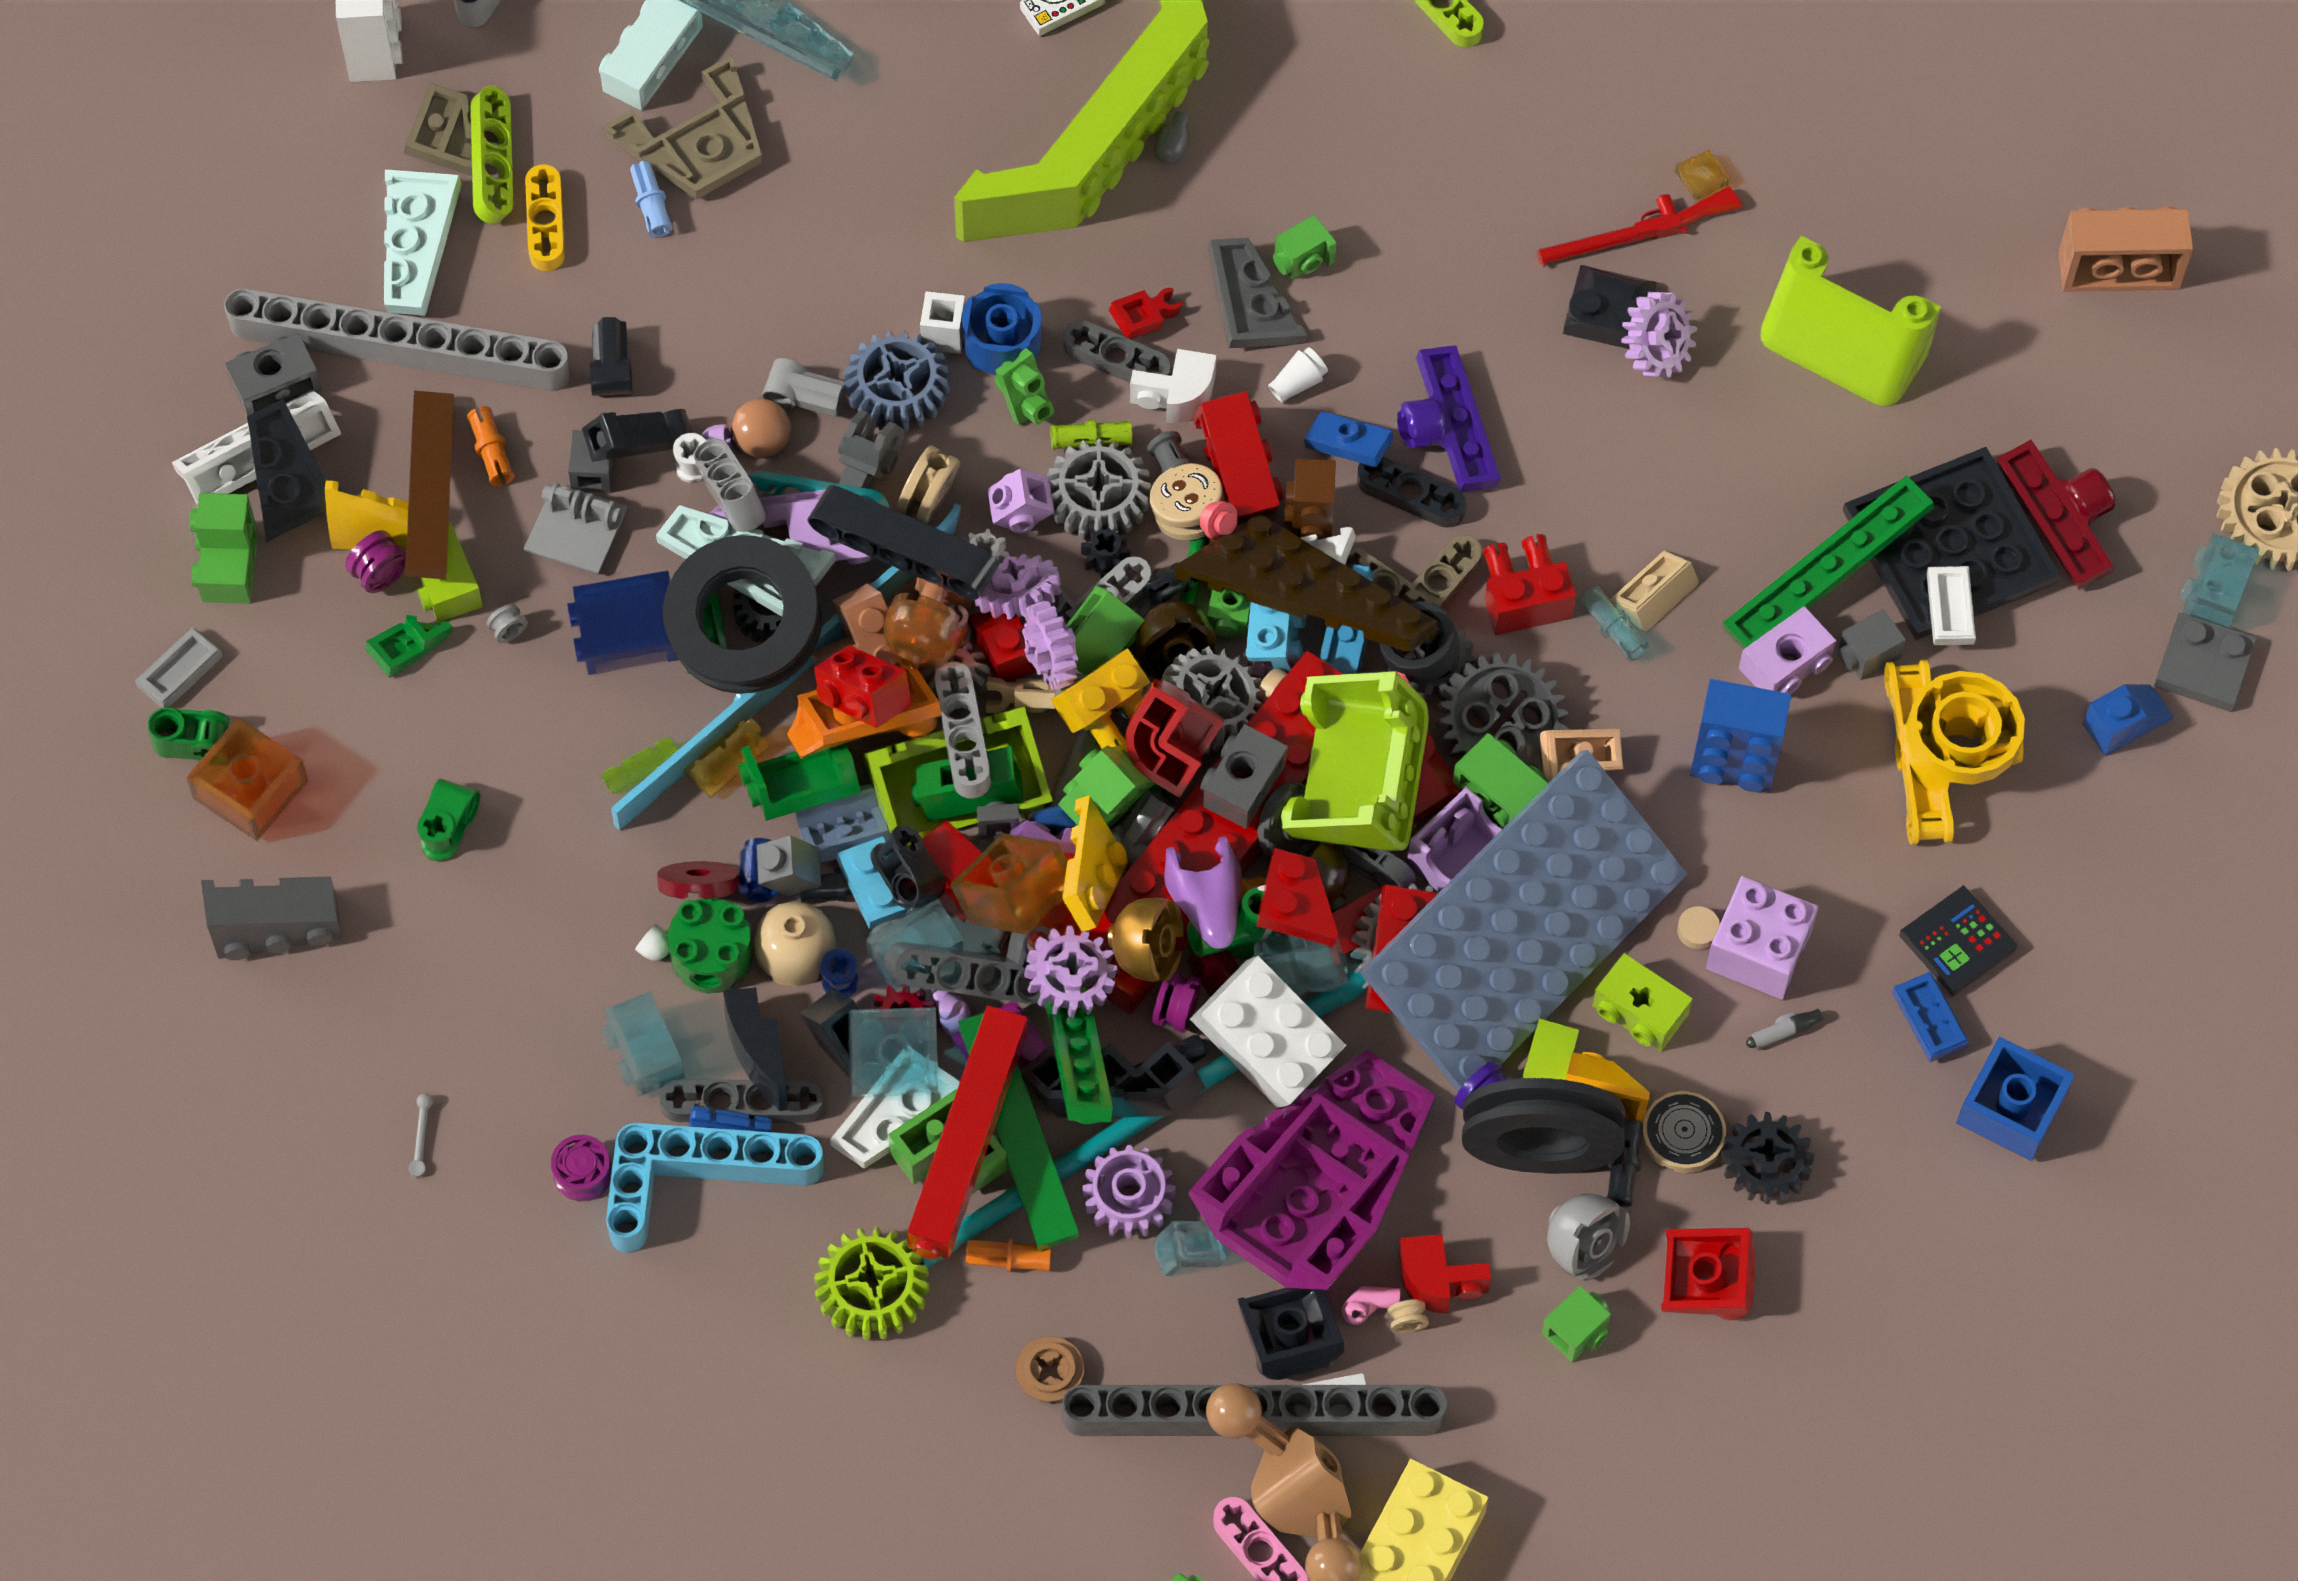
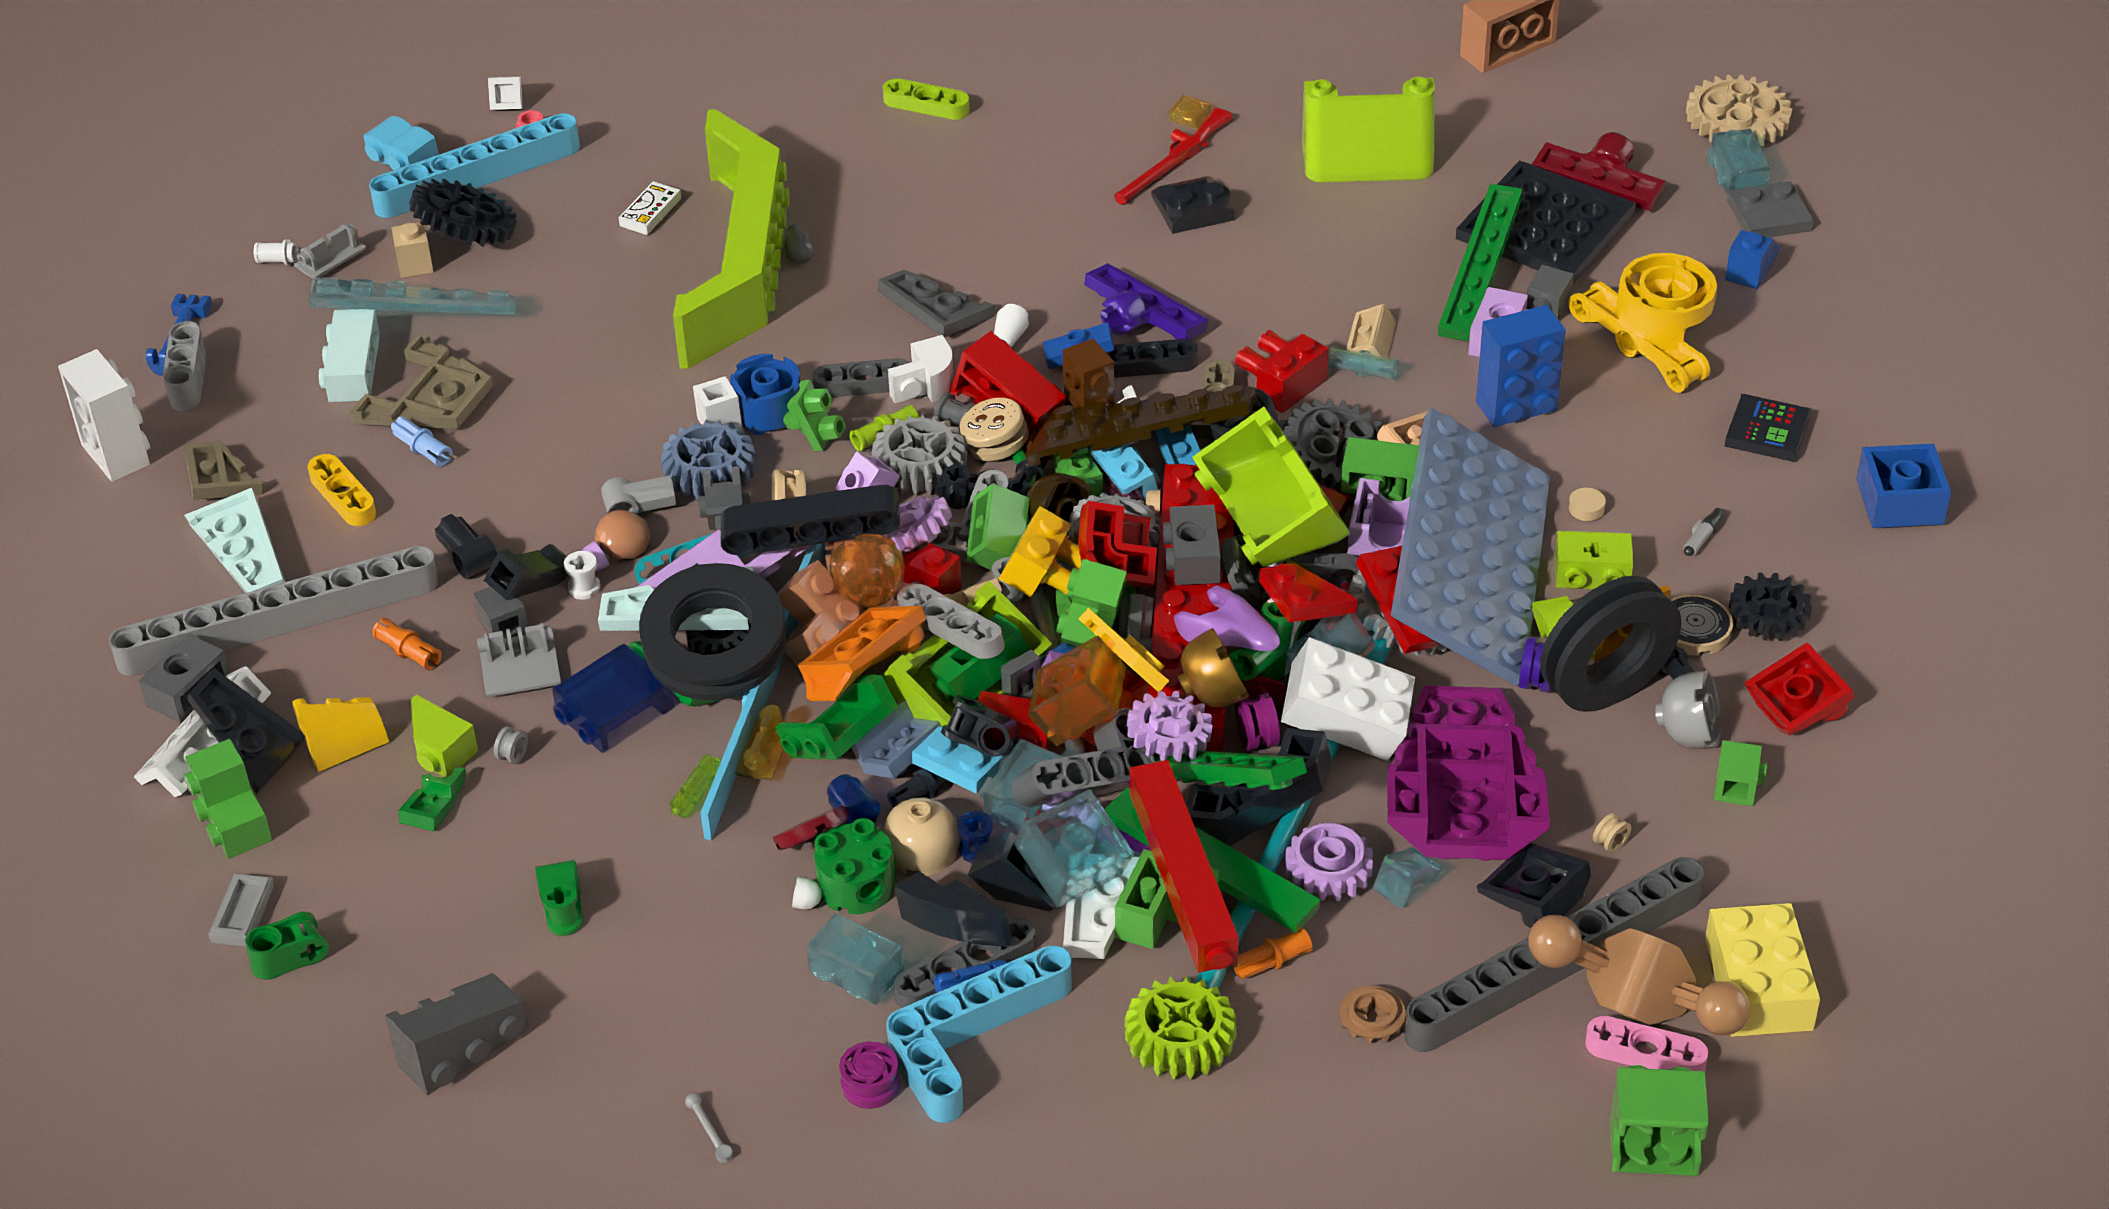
camera: 30 degrees left, 20 degrees down
(247, 779) = (364, 945): clear orange brick -> none
(376, 561) = (368, 752): magenta wheel -> none
(429, 485) = (379, 679): reddish brown tile -> none
(487, 153) = (269, 468): lime beam -> none
(729, 485) = (634, 559): light grey beam -> none
(788, 865) = (881, 775): dark grey brick -> none
(862, 686) = (853, 620): red brick -> none
(1050, 645) = (977, 532): lavender gear -> none
(1141, 314) = (863, 345): red plate -> none
(1218, 519) = (1030, 420): coral plate -> none
(1304, 248) = (950, 258): bright green brick -> none
(1366, 1301) = (1571, 839): bright pink arm -> none
(1430, 1280) = (1595, 793): red brick -> none
(1659, 334) = (1246, 192): lavender gear -> none
(1761, 937) = (1642, 479): lavender piece -> none
(1930, 1017) = (1795, 475): blue plate -> none
(1951, 605) = (1583, 246): white tile -> none

